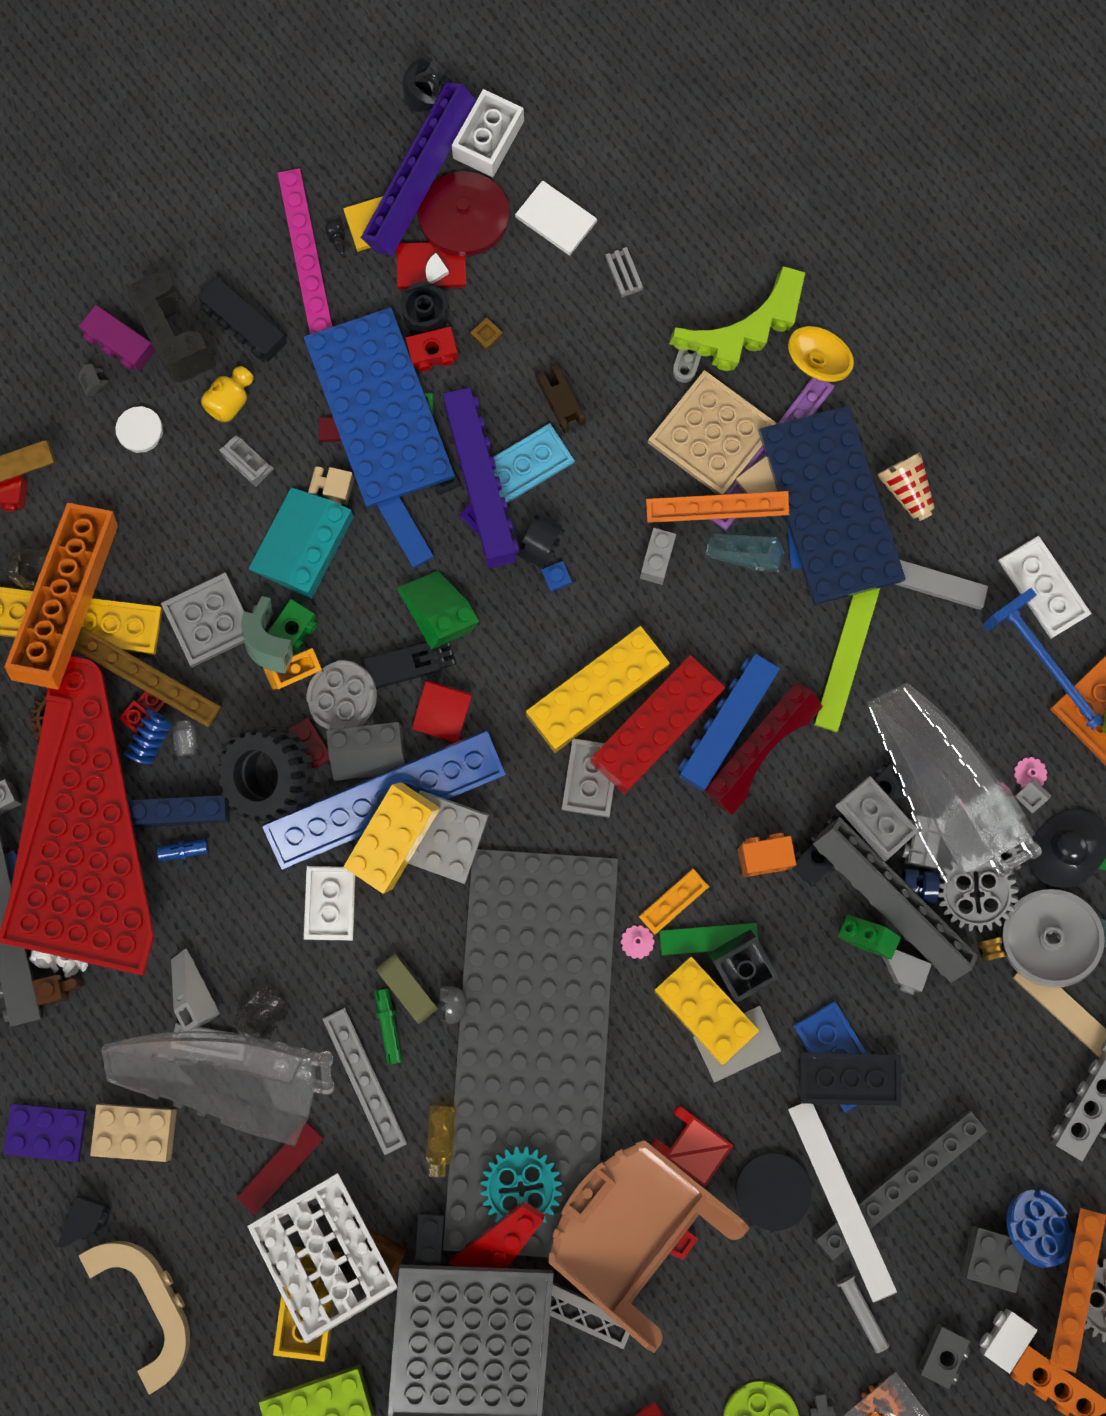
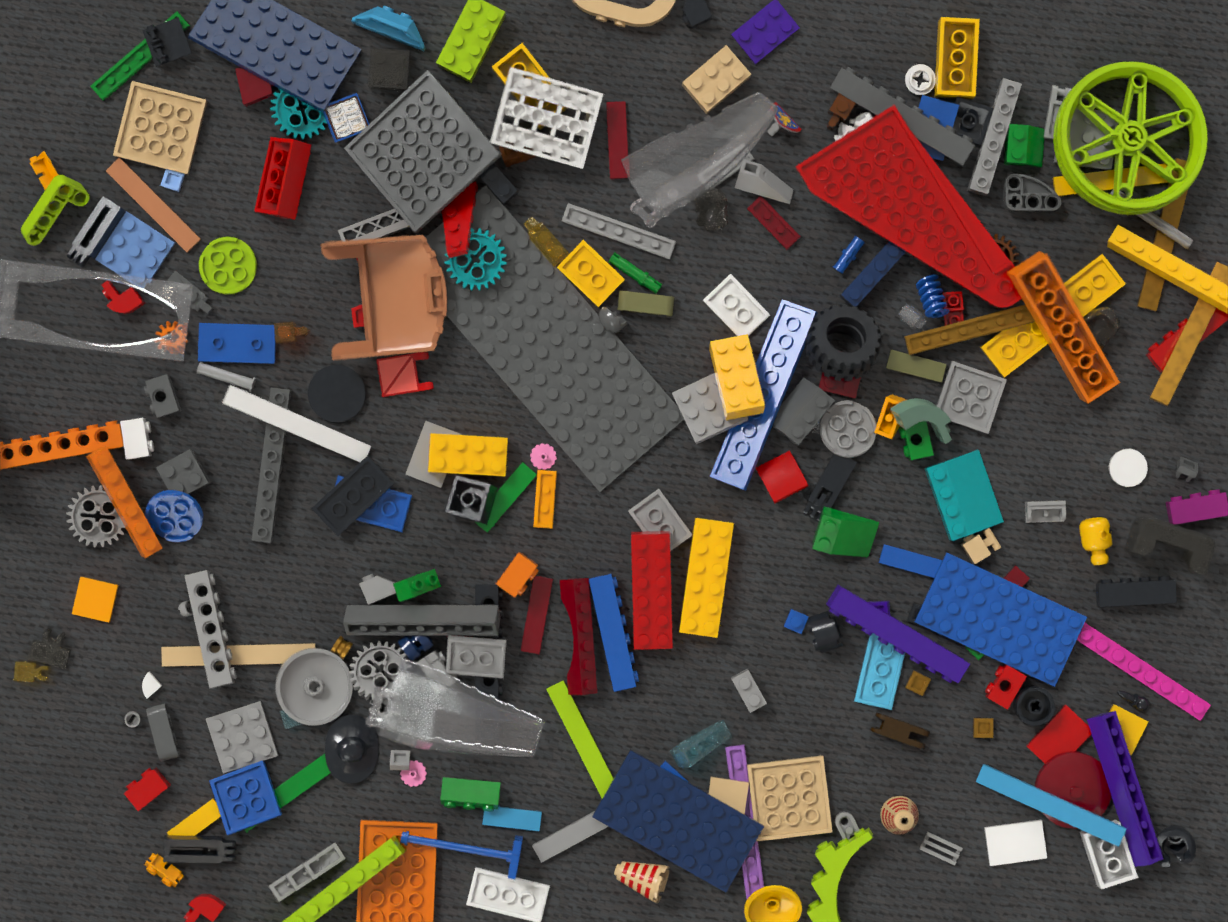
camera: 140 degrees right, 10 degrees up
(113, 1031) = (784, 121): none -> shield
(218, 946) = (773, 222): none -> dark red tile
(226, 693) = (916, 366): none -> olive tile
(428, 1067) = (590, 273): none -> yellow plate
(435, 269) = (1053, 736): white tile -> none
(494, 214) = (1051, 805): none -> dark azure tile
(504, 424) = (917, 683): none -> pearl gold tile
(632, 329) = (894, 810): none -> tan cone
(718, 506) = (742, 754): orange plate -> none
(764, 1296) = (288, 332): none -> clear orange brick
(782, 805) = (536, 614): none -> dark red tile
(823, 1336) = (236, 343): none -> blue plate
(977, 649) = (513, 818): none -> dark azure tile
(997, 704) = (470, 794): none -> green brick

